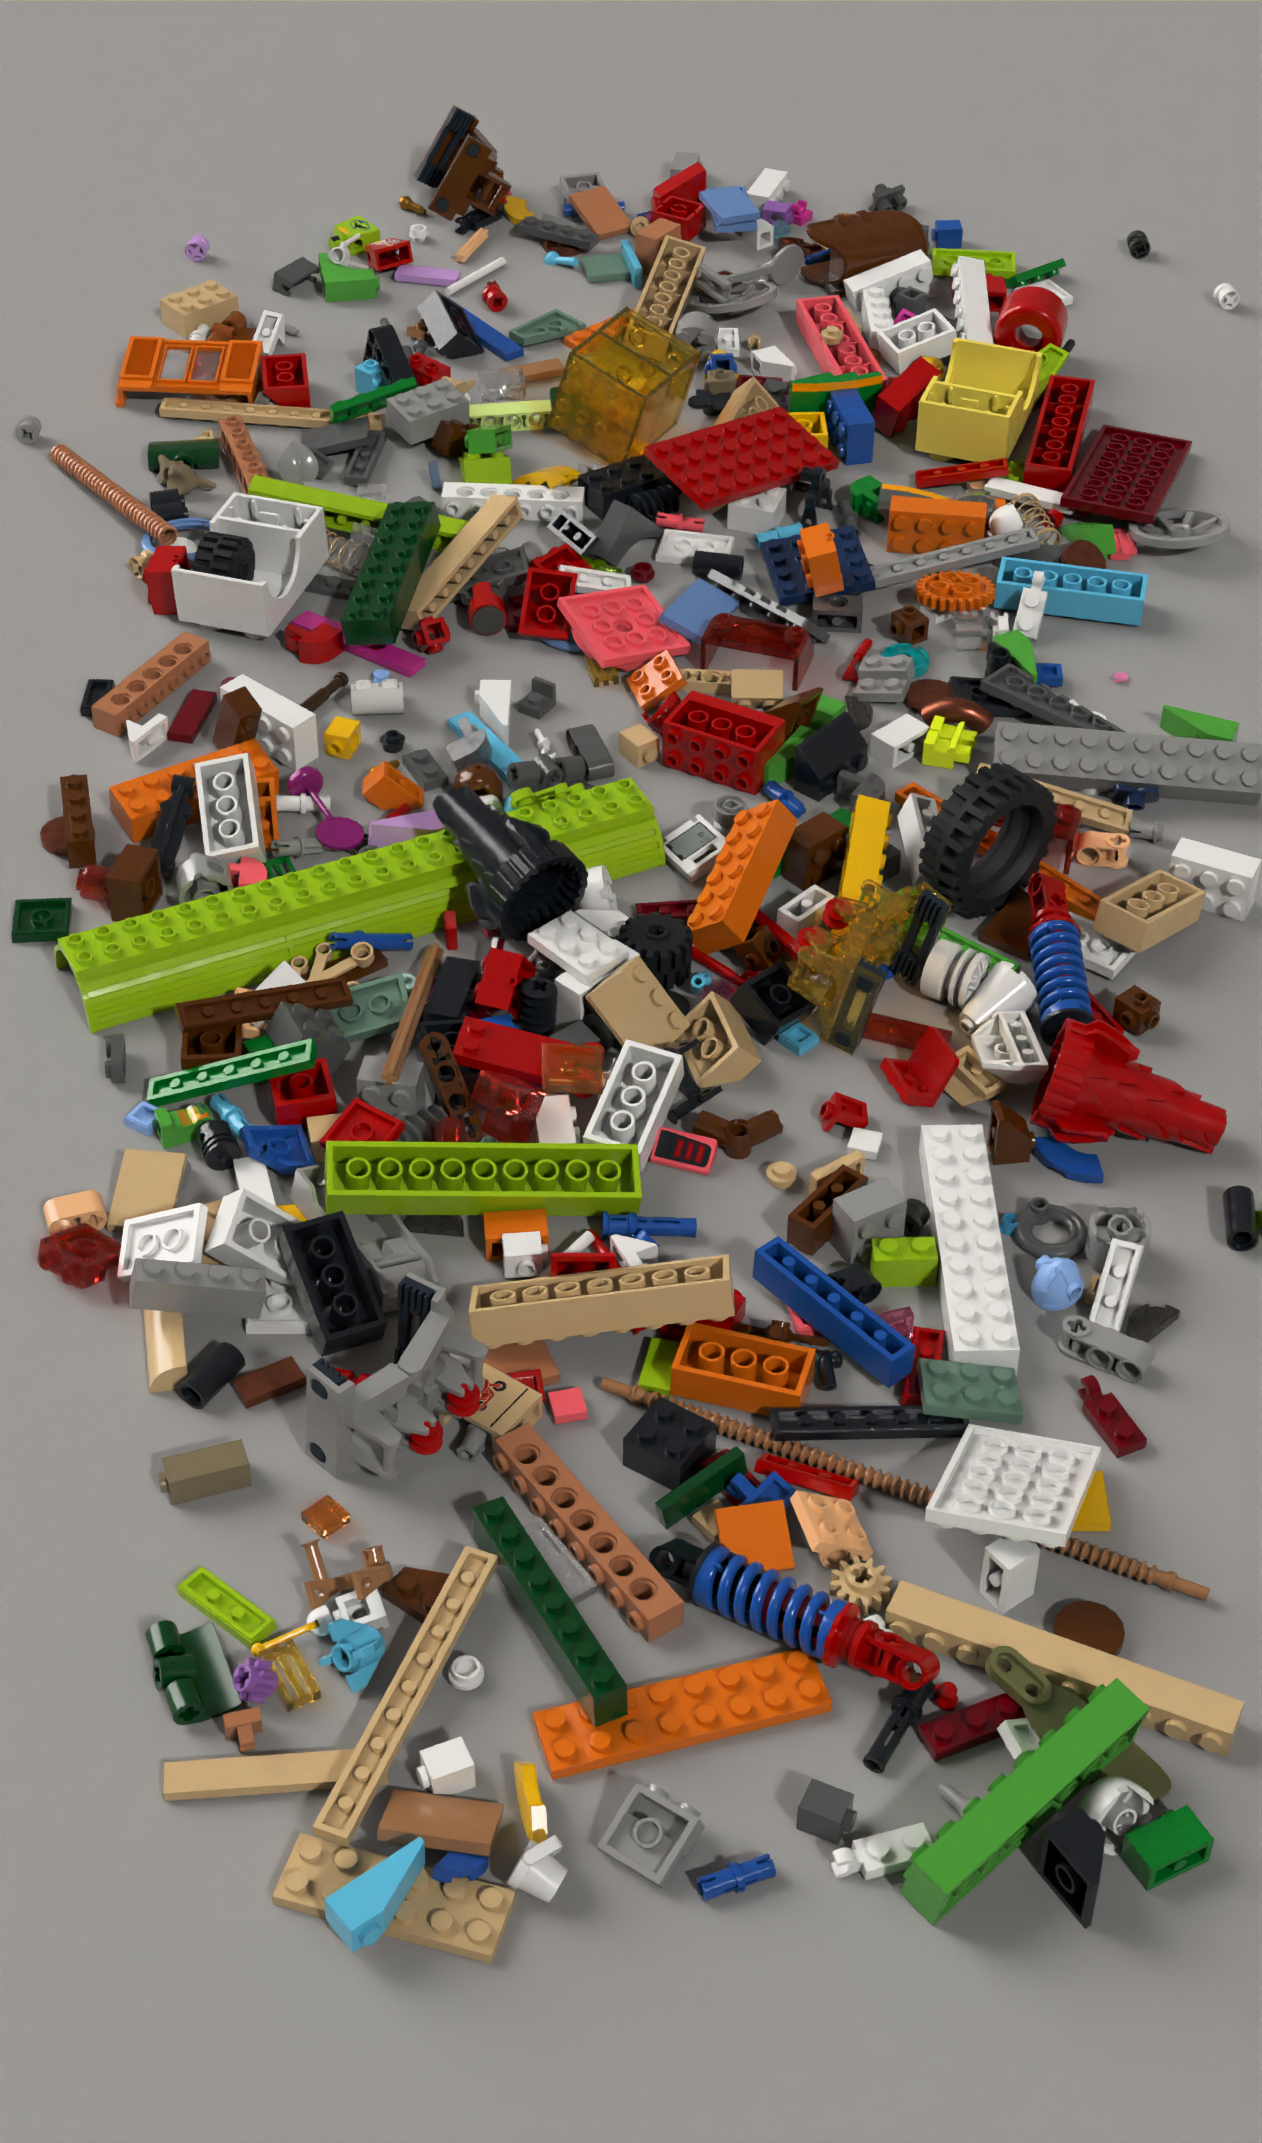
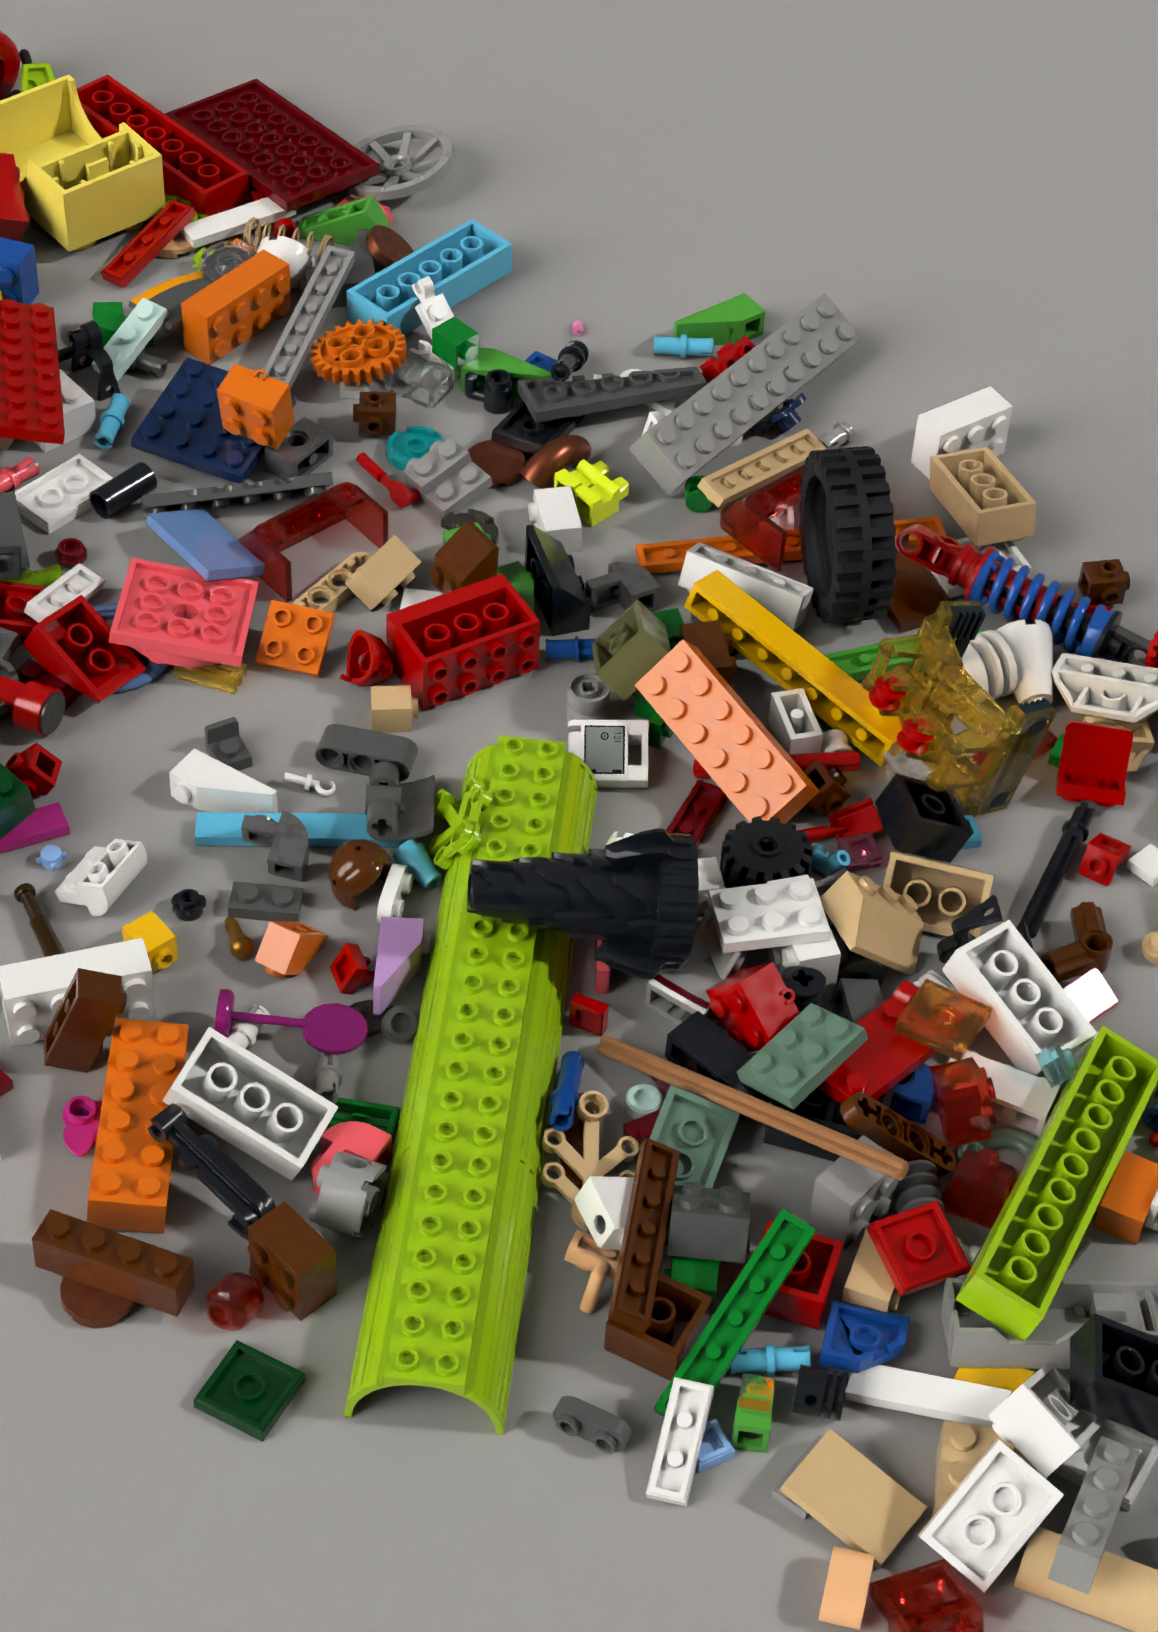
camera: 60 degrees left, 5 degrees up
(130, 1098) = (680, 1441): none -> white tile
(468, 1009) = (802, 1055): none -> sand green plate
(587, 1134) = (1057, 1064): none -> clear light blue plate
(799, 797) = (630, 649): none -> olive brick
(803, 1095) = (1074, 833): none -> black axle
(851, 502) = (134, 335): none -> light aqua plate
(1004, 617) = (455, 342): none -> green brick
(1066, 678) = (570, 360): none -> black pin
(1155, 724) = (683, 346): none -> medium azure pin

